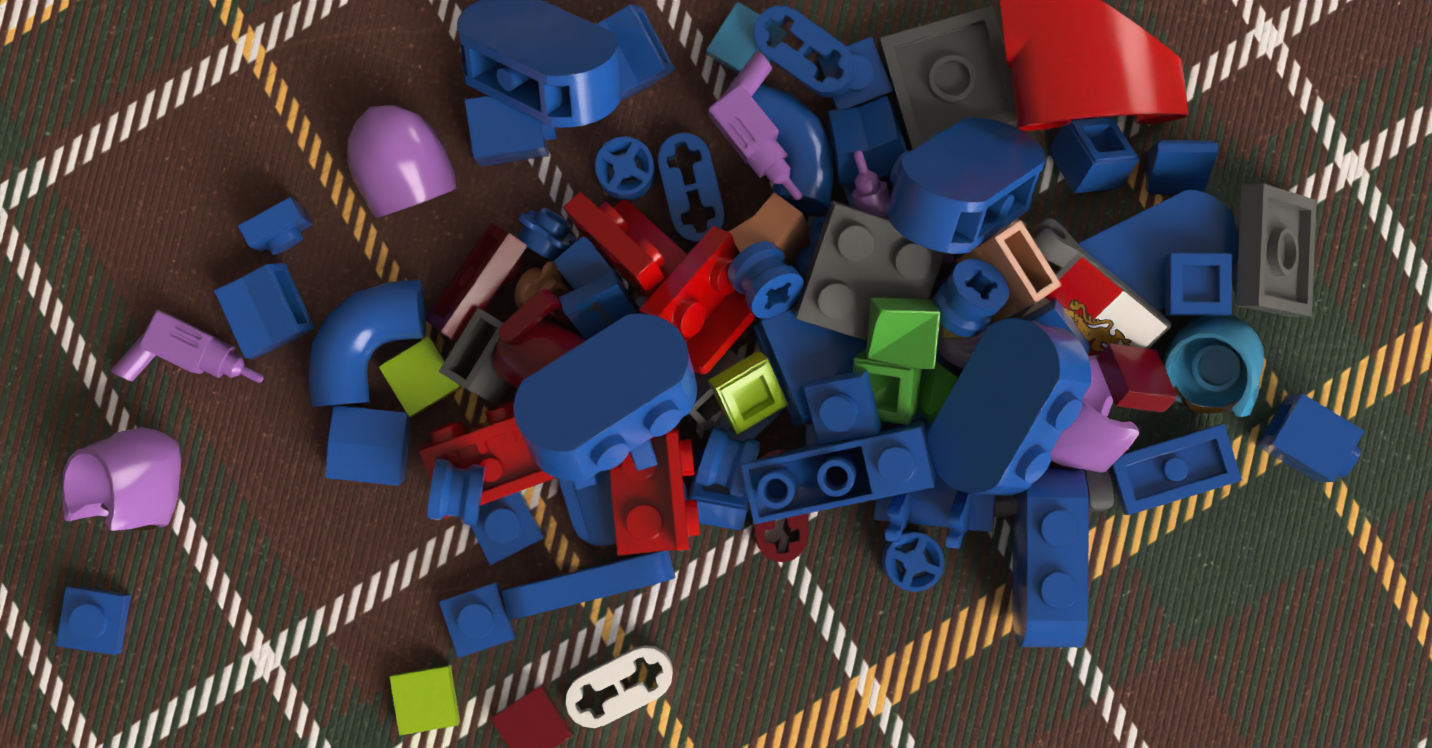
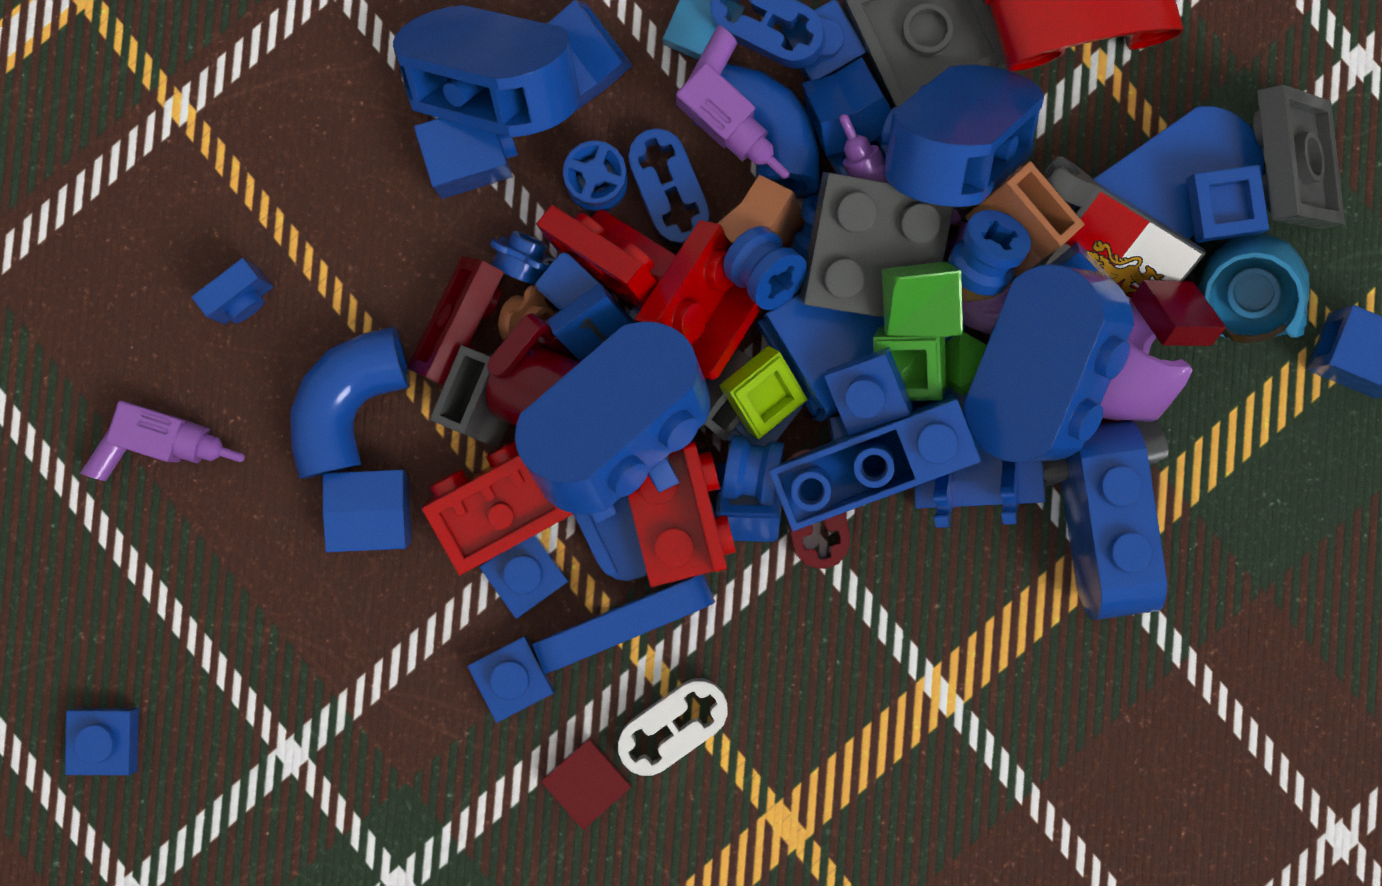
camera: 10 degrees left, 0 degrees up
(125, 478) = (111, 586): medium lavender piece -> none
(264, 310) = (234, 384): blue piece -> none
(397, 160) = (351, 200): medium lavender piece -> none
(417, 378) = (408, 432): lime tile -> none
(424, 700) = (468, 772): lime tile -> none
(456, 492) = (467, 545): blue wheel -> none
(921, 566) = (976, 548): blue wheel -> none
(1093, 155) = (1088, 88): blue slope -> none
(1174, 469) = (1227, 407): blue plate -> none
(1179, 166) = (1181, 84): blue slope -> none

